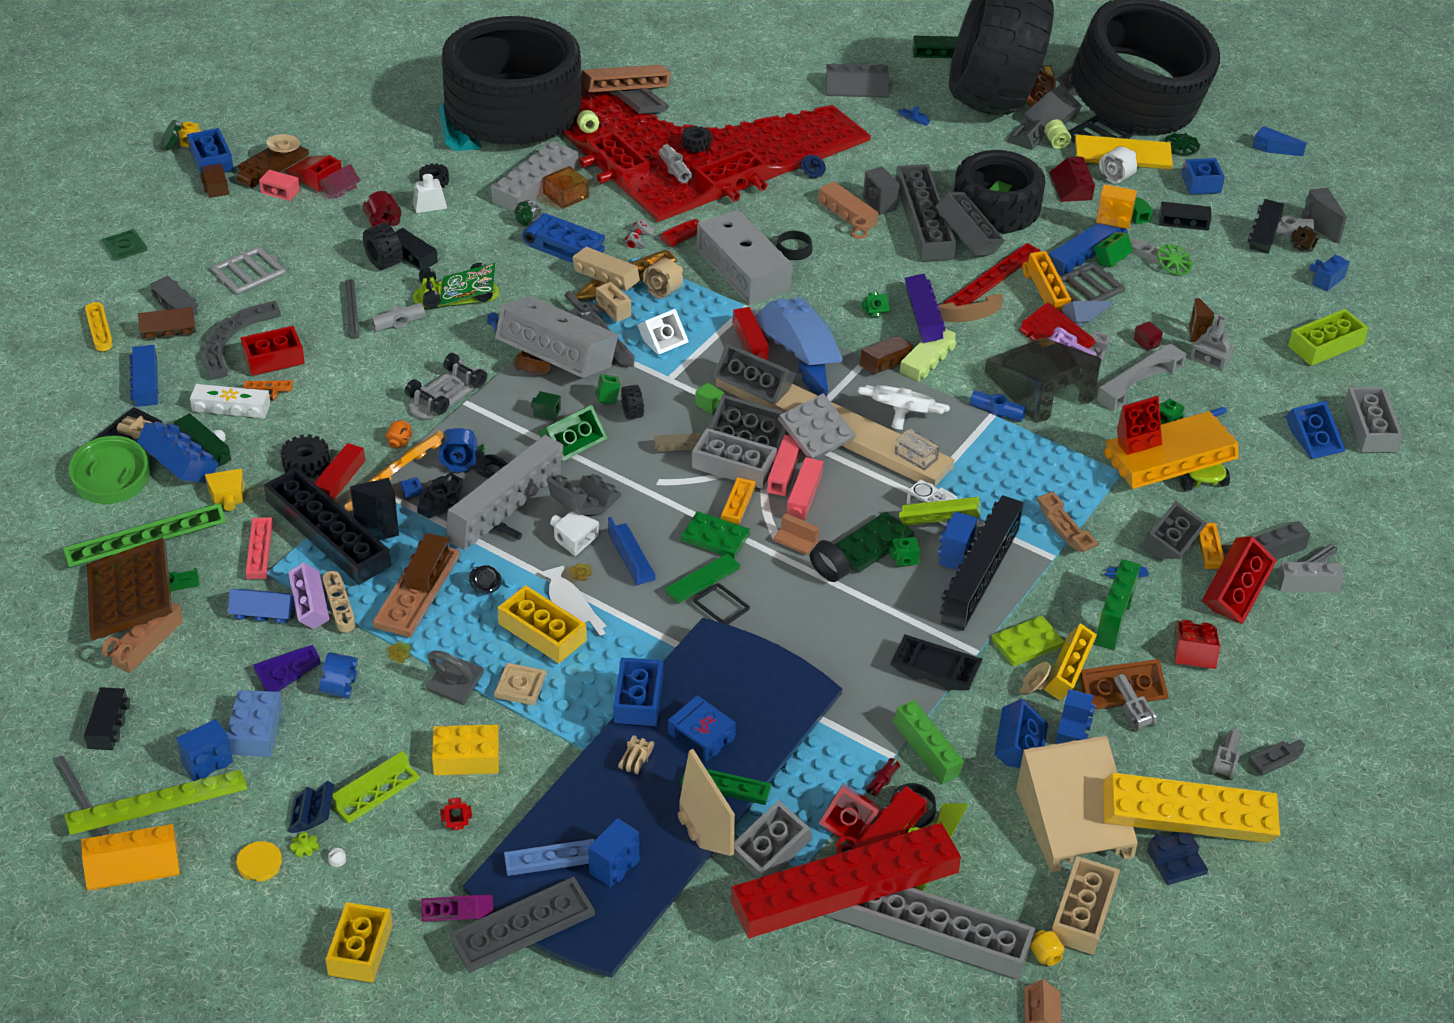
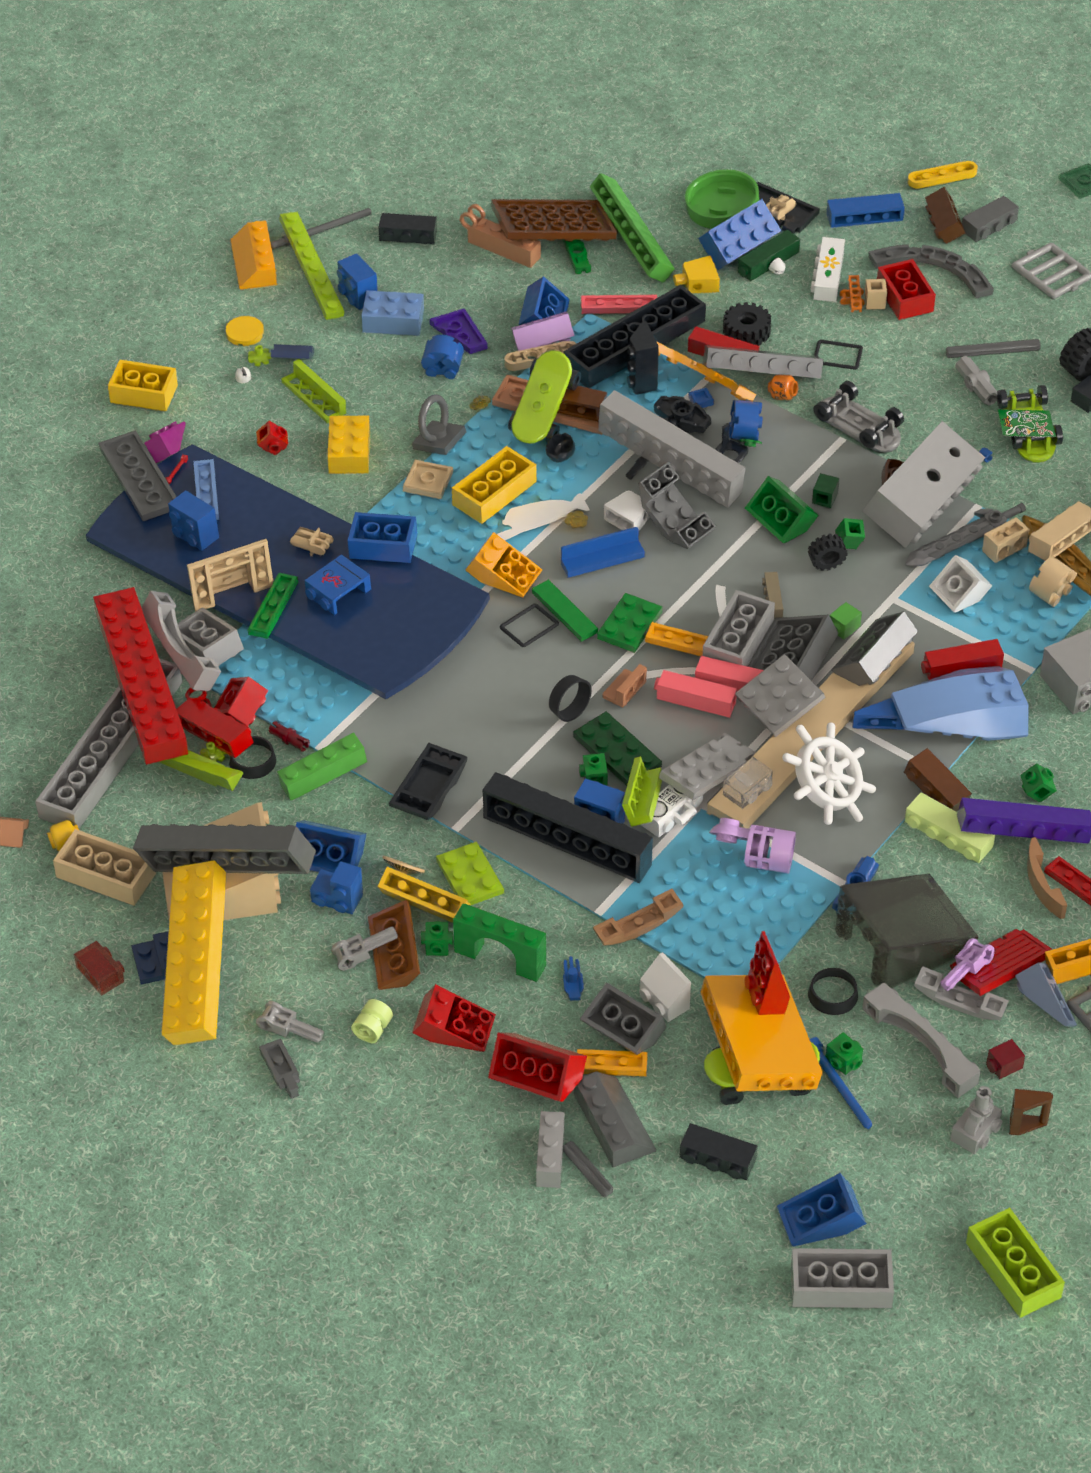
camera: 95 degrees right, 5 degrees up
(276, 367) = (875, 294): none -> tan brick
(347, 417) = (840, 344): none -> black piece
(374, 438) = (762, 361): none -> brick
(433, 577) = (542, 397): none -> lime piece
(493, 887) = (184, 458): none -> red hinge
(650, 620) = (503, 567): none -> light orange slope
(837, 829) = (160, 614): none -> light grey arch
(896, 476) = (706, 766): none -> light grey hinge
(981, 444) = (758, 844): none -> lavender cylinder
(1094, 769) = (233, 847): none -> dark grey brick
(1097, 432) = (828, 1007): none -> black tyre
(1112, 652) = (436, 938): none -> green brick
(1135, 507) = (666, 988): none -> white slope
(1204, 901) = (99, 967): none -> clear red brick
(1214, 693) = (372, 1021): none -> yellowish green wheel
(1280, 484) = (718, 1152): none -> black brick

